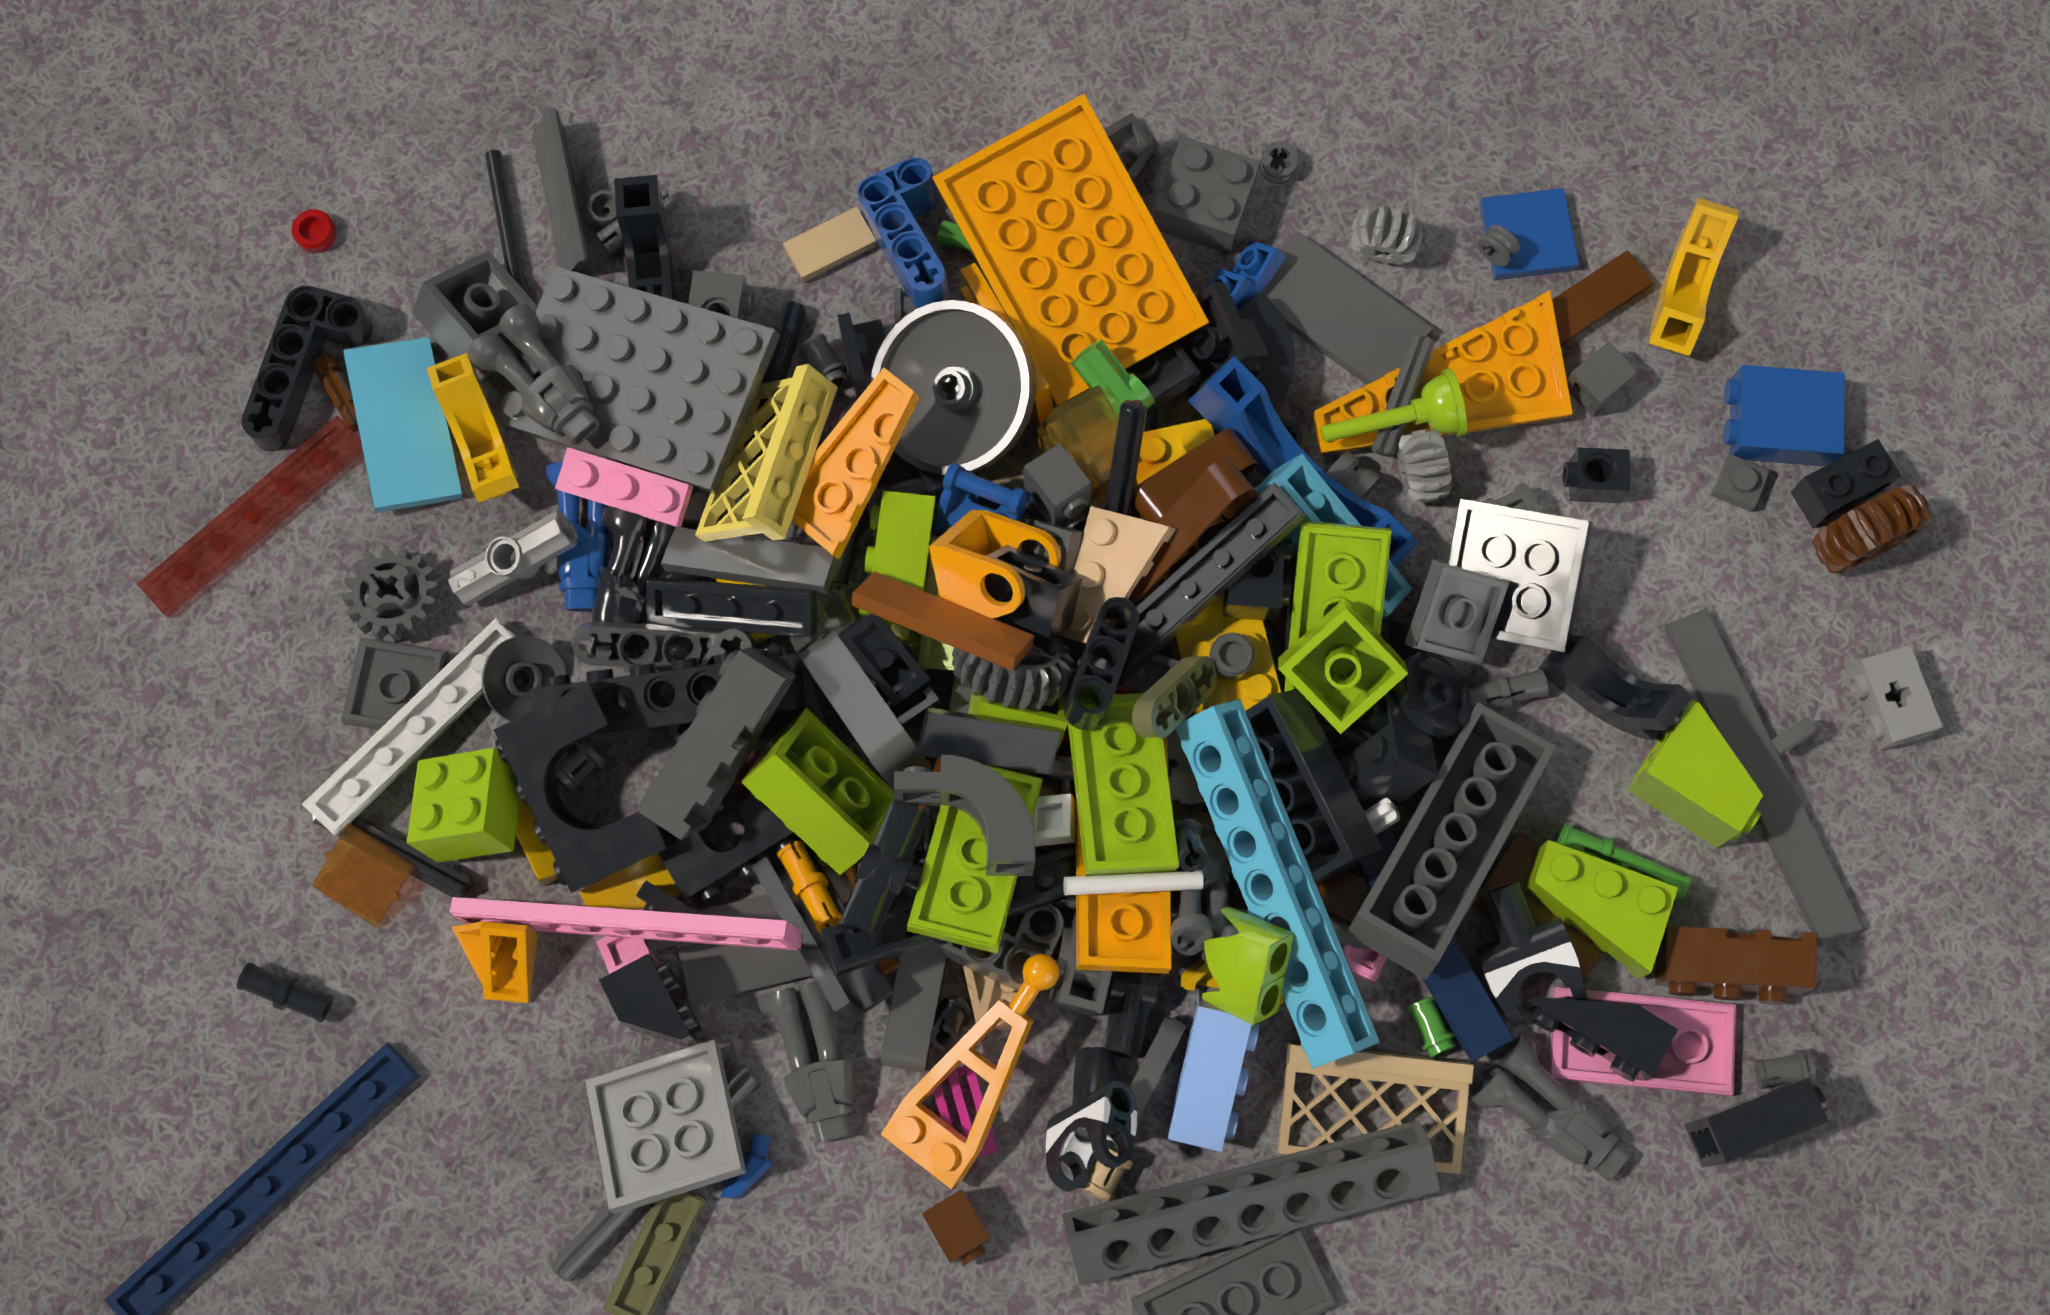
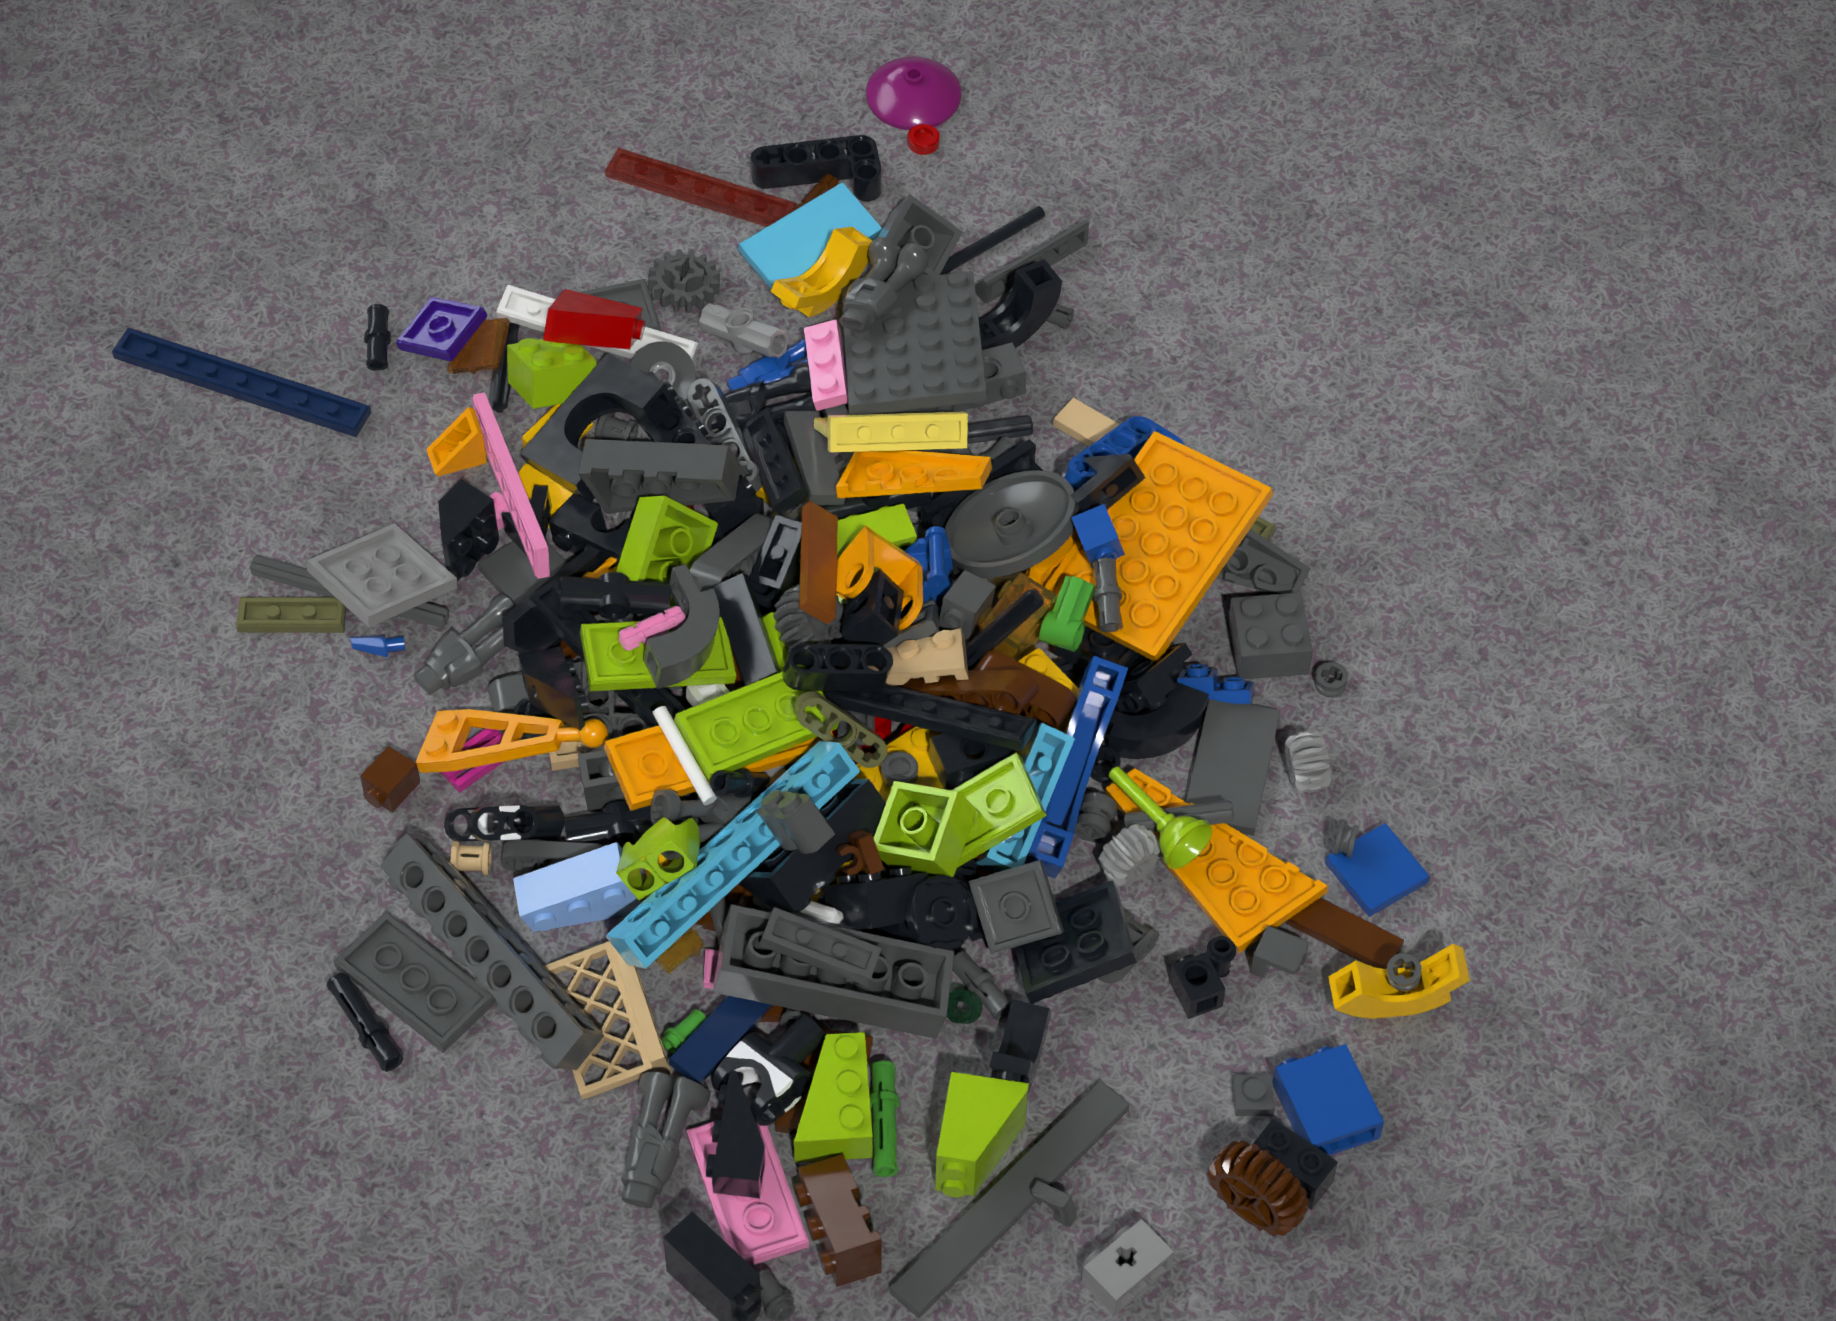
camera: 65 degrees right, 20 degrees down
(245, 228) = (913, 92): none -> magenta dish
(314, 909) = (441, 328): none -> dark purple tile
(426, 727) = (593, 321): none -> red slope
(949, 993) = (554, 685): none -> black slope
(951, 847) = (651, 627): none -> bright pink axle
(978, 249) = (1111, 481): none -> black slope
(1041, 304) = (1098, 534): none -> blue brick
(1114, 331) = (1107, 595): none -> dark grey pin
(1306, 800) = (795, 821): none -> dark grey brick
(1350, 746) = (864, 853): none -> reddish brown tile
(1448, 842) = (820, 946): none -> dark grey plate
(1530, 711) = (970, 998): none -> clear green bush
(1573, 427) = (1221, 953): none -> black pin
(1700, 257) = (1407, 961): none -> dark grey bush

